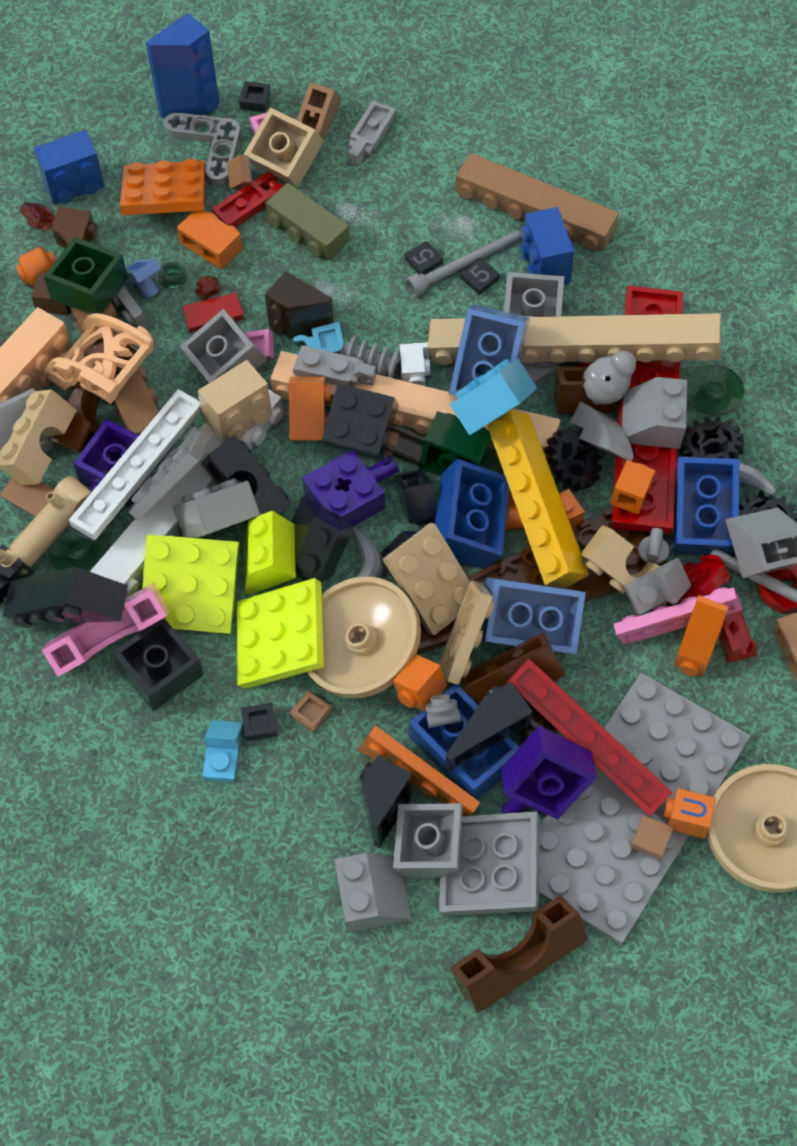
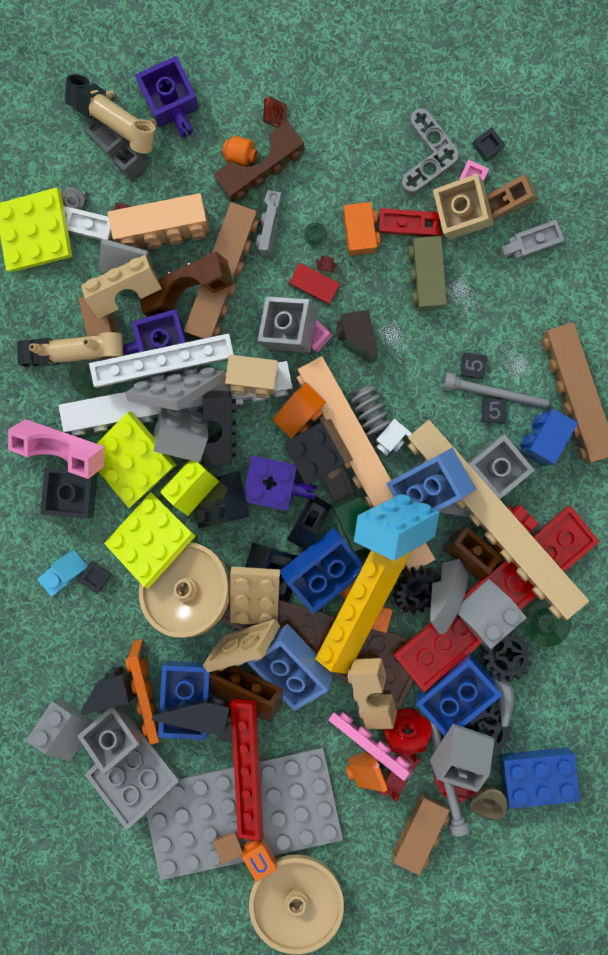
camera: 40 degrees right, 25 degrees up
(64, 598) = (43, 413): black wedge -> none
(69, 167) = (319, 95): blue brick -> none
(78, 362) = (182, 253): light nougat fence -> none
(86, 276) = (250, 196): dark green brick -> none
(141, 272) = (293, 218): medium blue tile -> none
(163, 187) = (364, 165): orange plate -> none
(183, 68) = (451, 89): blue slope -> none
(239, 171) = (421, 197): medium nougat tile -> none
(311, 711) = (128, 596): medium nougat tile -> none
(324, 338) = (358, 368): medium azure plate -> none
(333, 366) = (337, 398): light grey hinge -> none
(369, 554) = (244, 540): light grey piece -> none
(419, 682) = (186, 652): orange brick -> none
(442, 711) = (183, 679): light grey plate -> none
(546, 774) = (203, 770): dark purple brick -> none
(552, 935) = (115, 844): reddish brown arch -> none
(619, 369) = (490, 563): light grey piece -> none
(632, 487) = (425, 650): orange brick -> none
(654, 547) = (402, 690): light grey plate -> none
(660, 585) = (380, 723): light grey slope -> none

